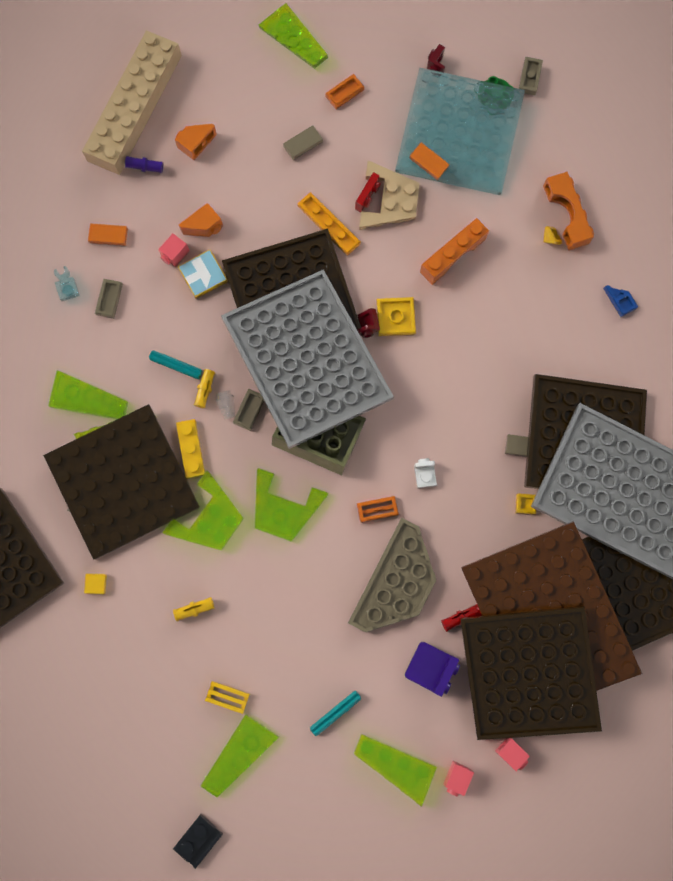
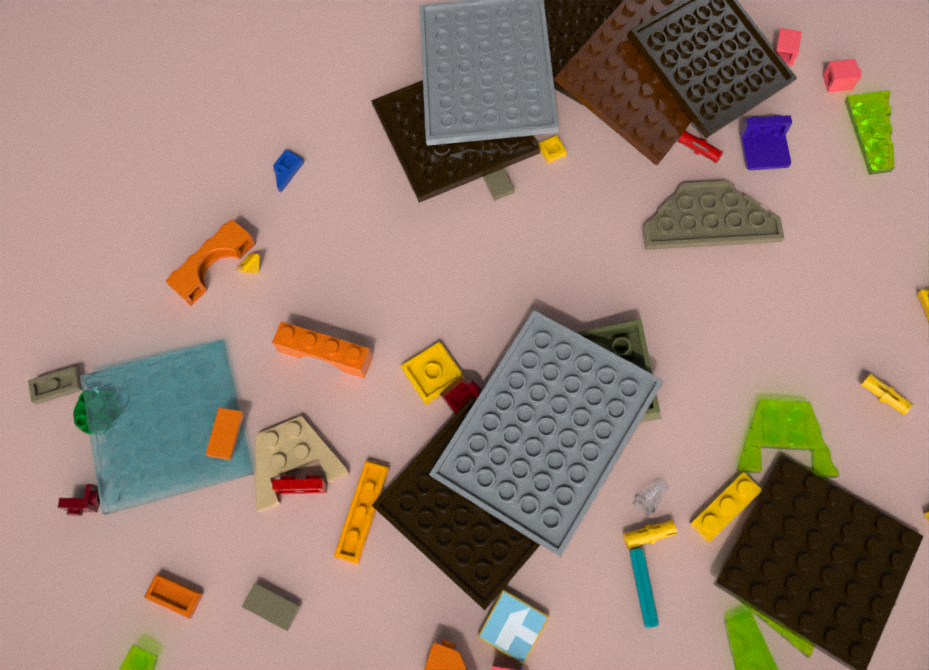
camera: 115 degrees left, 10 degrees down
(249, 410) = (639, 469): dark tan tile -> none
(279, 515) = (726, 364): clear neon green wing -> none
(335, 713) = (871, 205): teal axle -> none
(380, 516) = (648, 274): orange tile -> none
(425, 473) = (585, 251): white bracket -> none

